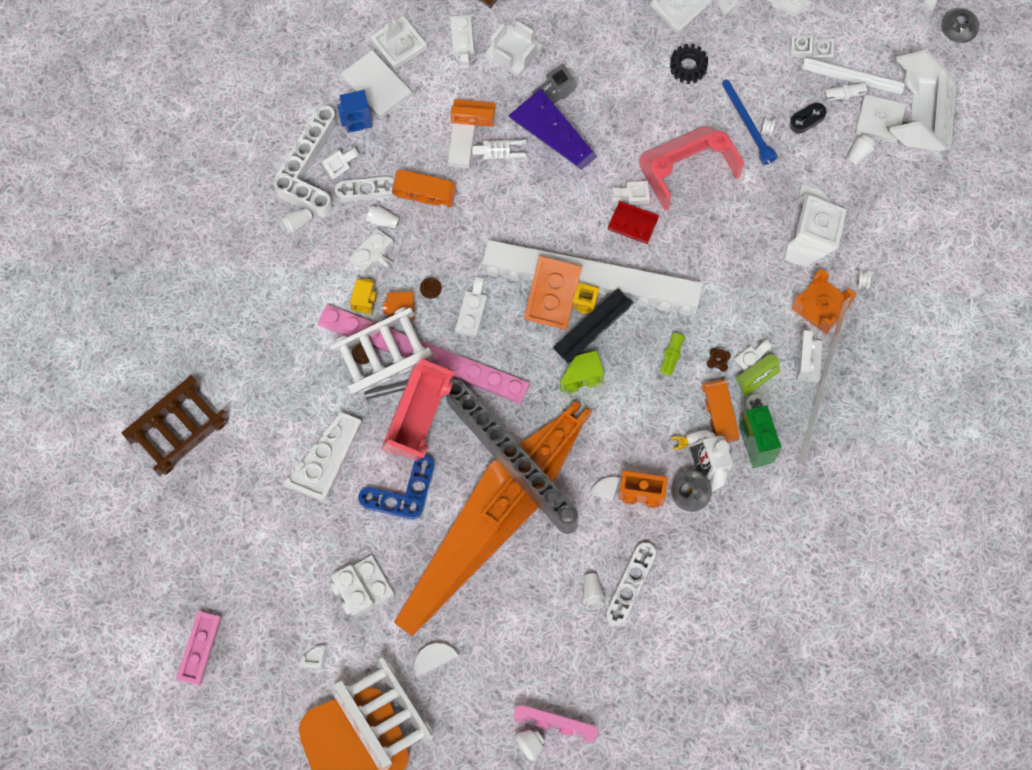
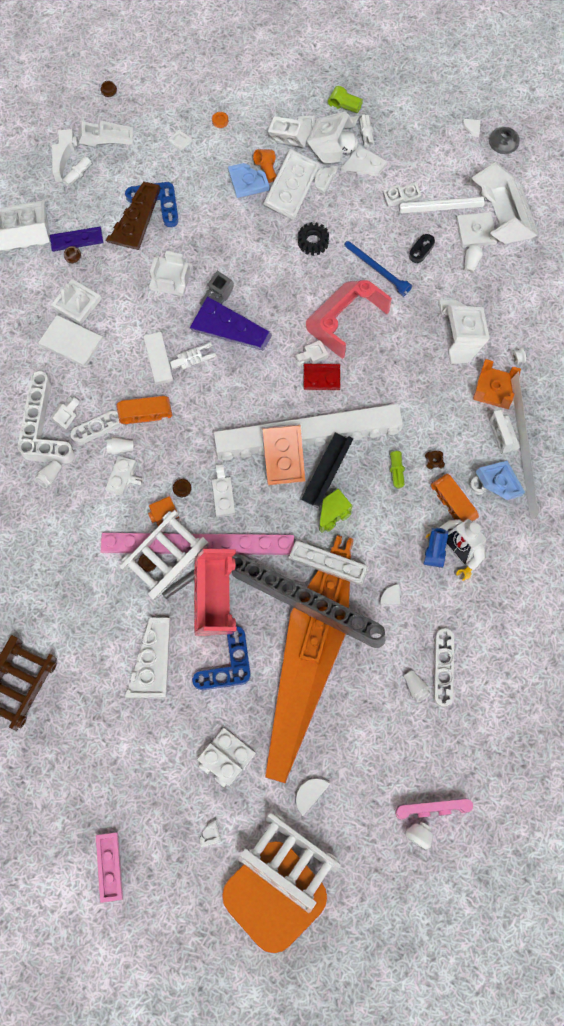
camera: 20 degrees left, 0 degrees up
(354, 111) = (63, 368): blue brick -> none
(363, 296) = (130, 515): yellow brick -> none
(462, 38) = (126, 281): white plate -> none
(473, 113) = (159, 335): orange panel -> none
(553, 426) = (329, 563): none -> white tile
(584, 302) = (312, 453): yellow brick -> none
(642, 489) = (421, 586): orange brick -> none
(675, 457) = (436, 552): none -> blue piece
(700, 488) = (468, 568): flat silver piece -> none
(752, 356) = (461, 450): white plate -> none
(758, 374) = (471, 459): lime slope -> none
(760, 436) = (497, 508): green brick -> none
(768, 126) = (395, 265): white bush -> none
(783, 407) = (500, 480): none -> light blue plate
(844, 92) = (440, 219): white pin -> none

